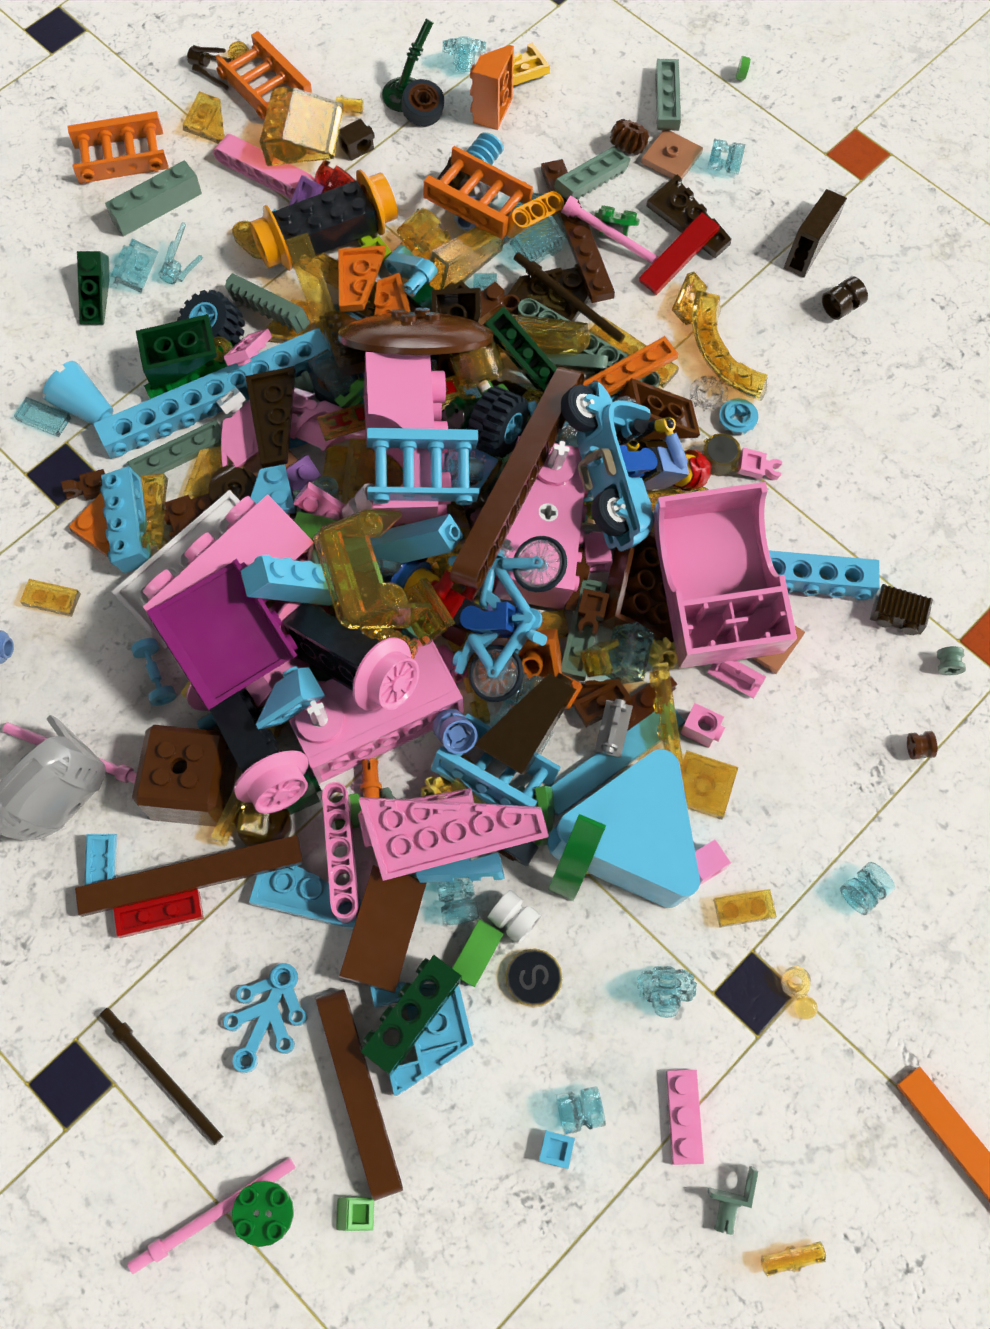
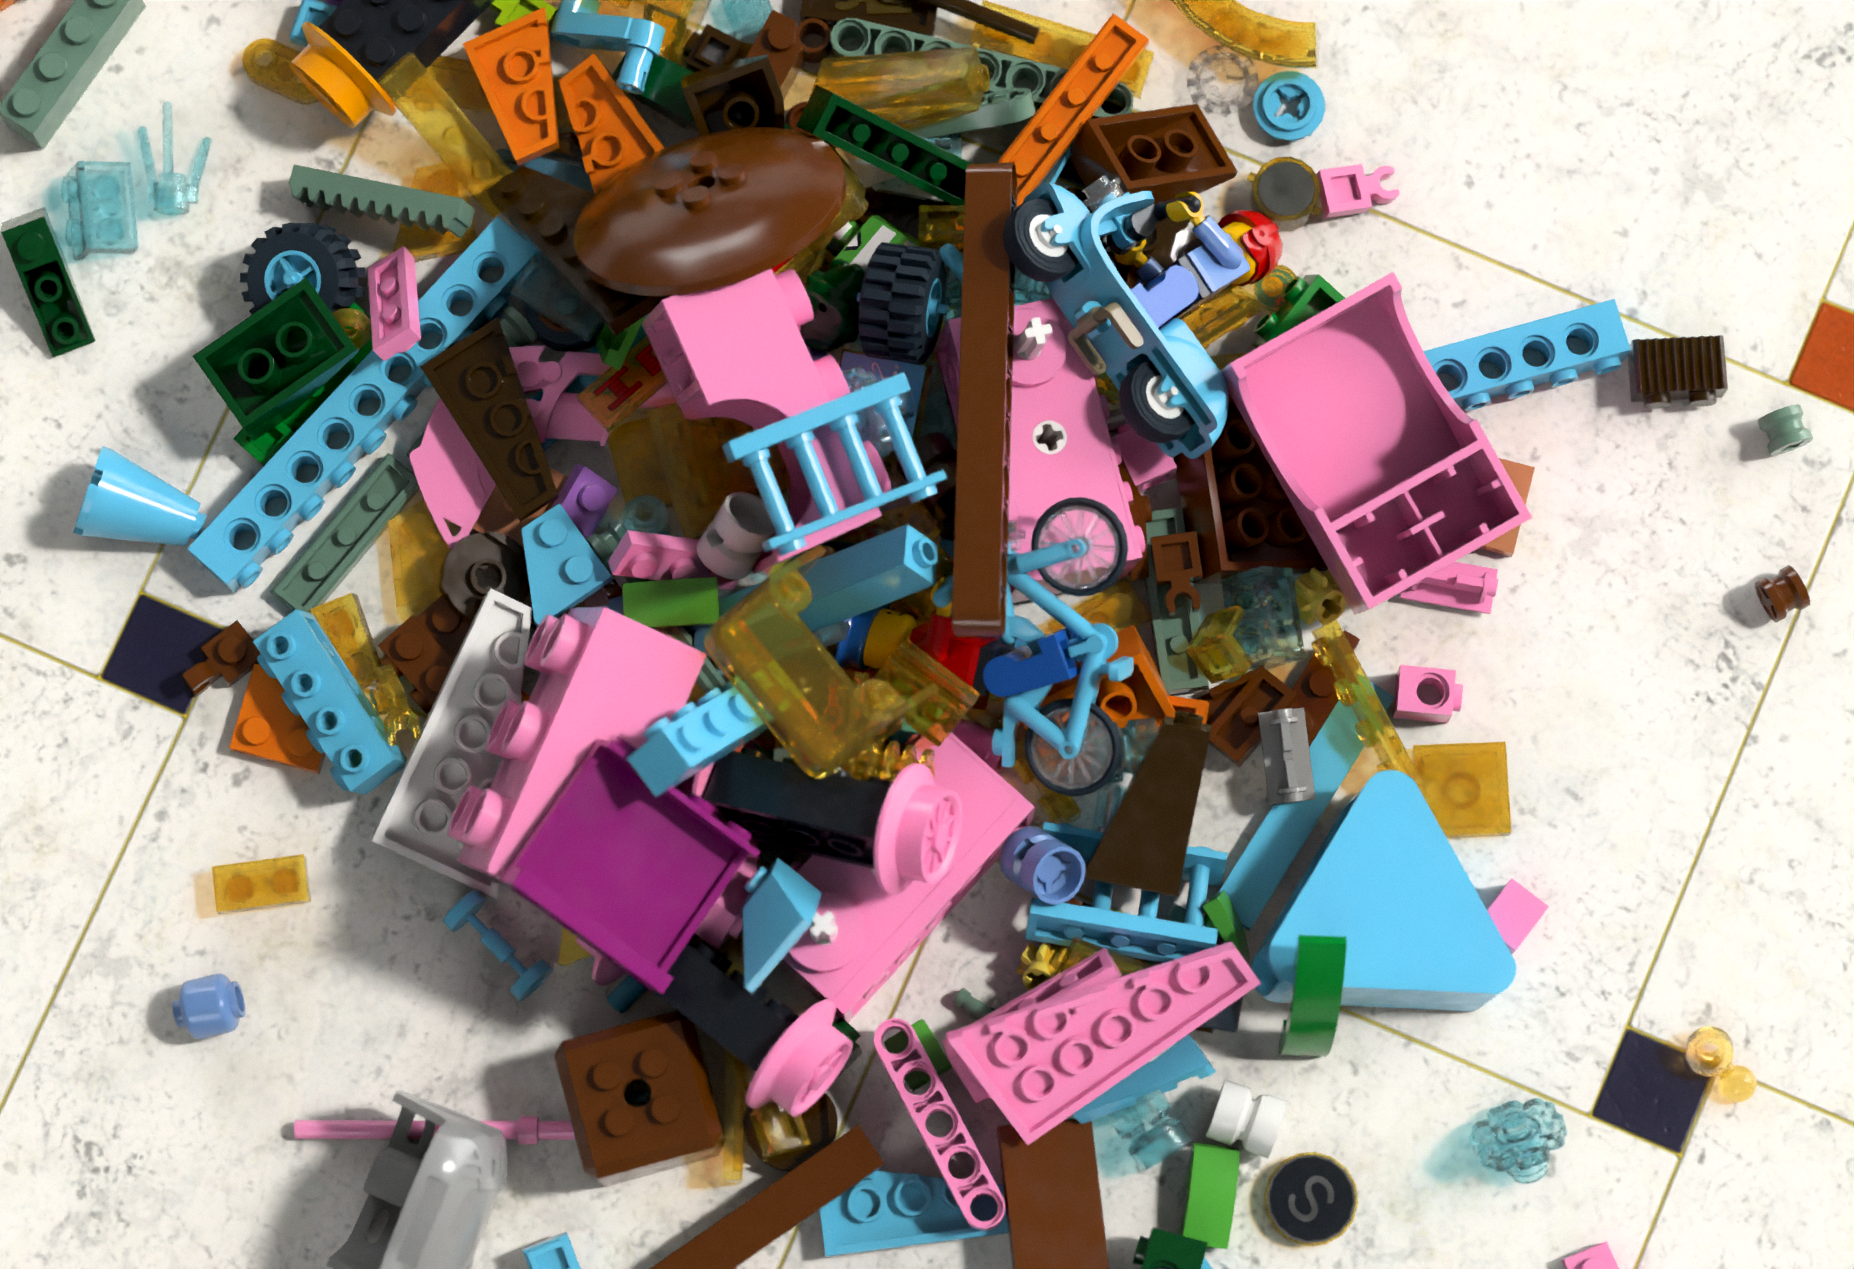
camera: 20 degrees left, 10 degrees up
(42, 416) = (78, 562): clear light blue tile -> none
(231, 401) = (410, 417): white plate -> none
(371, 784) = (932, 995): orange pin -> none
(744, 908) = (1593, 966): clear yellow plate -> none
(864, 891) = (1773, 858): clear light blue wheel -> none

